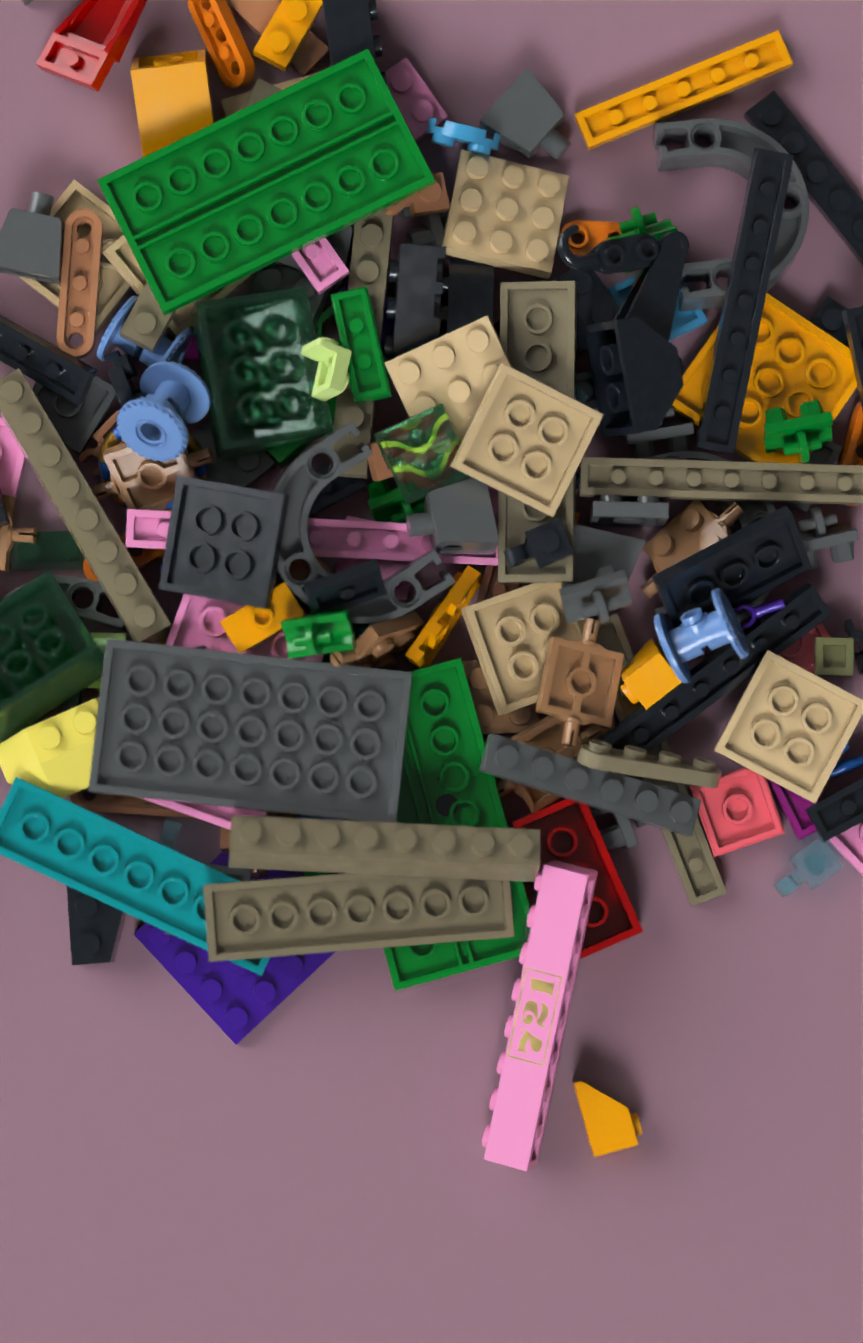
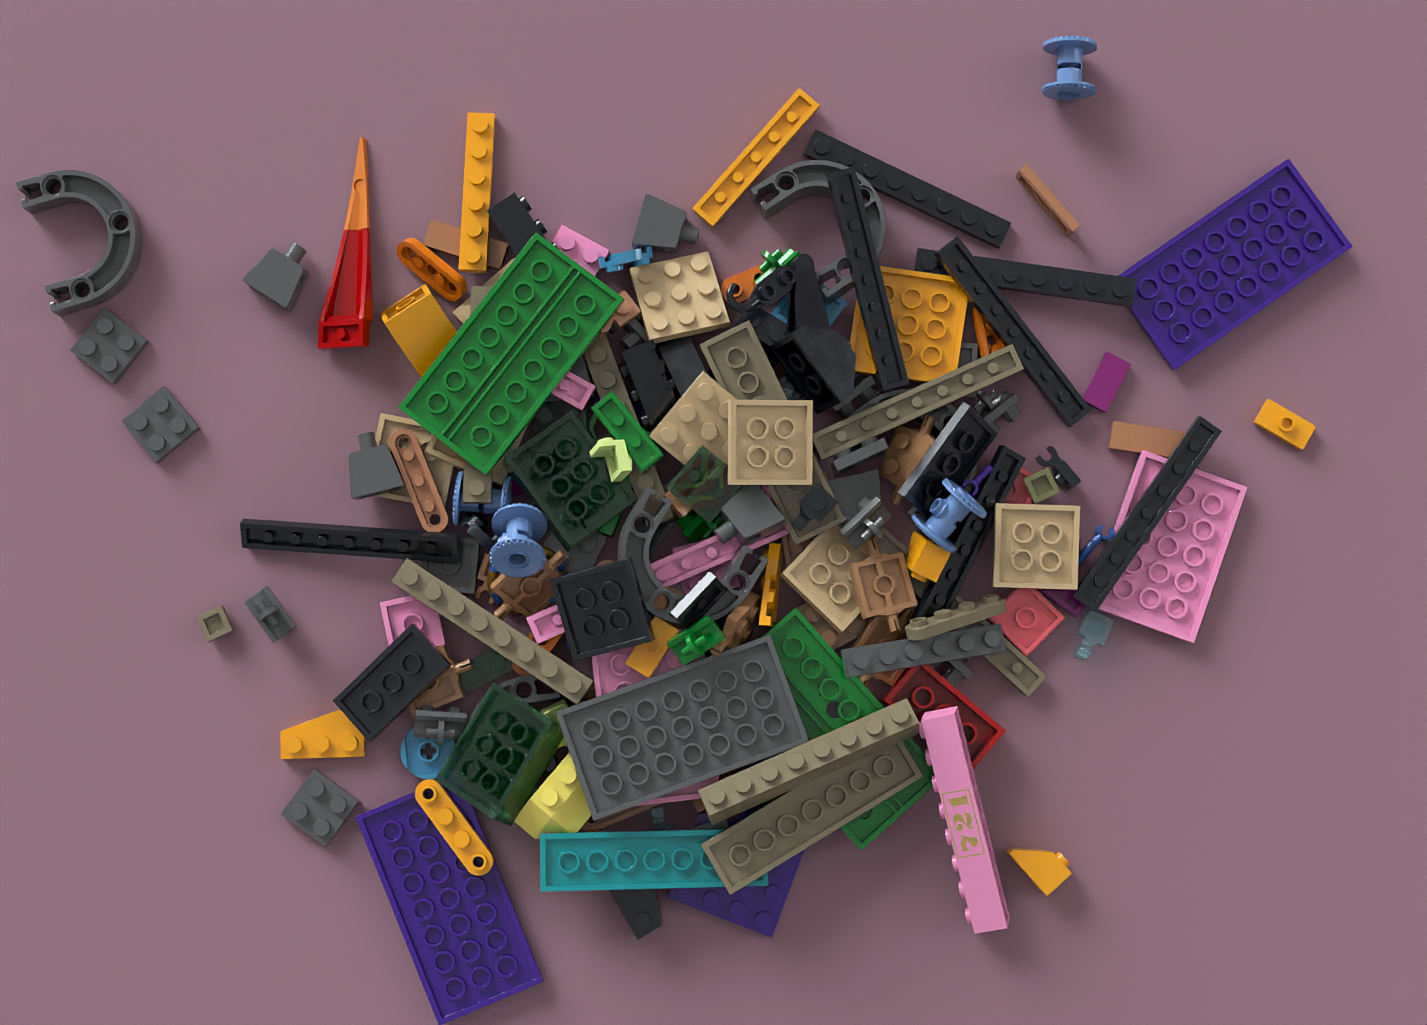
camera: 20 degrees left, 0 degrees up
(800, 433) = (945, 350): green hips -> none

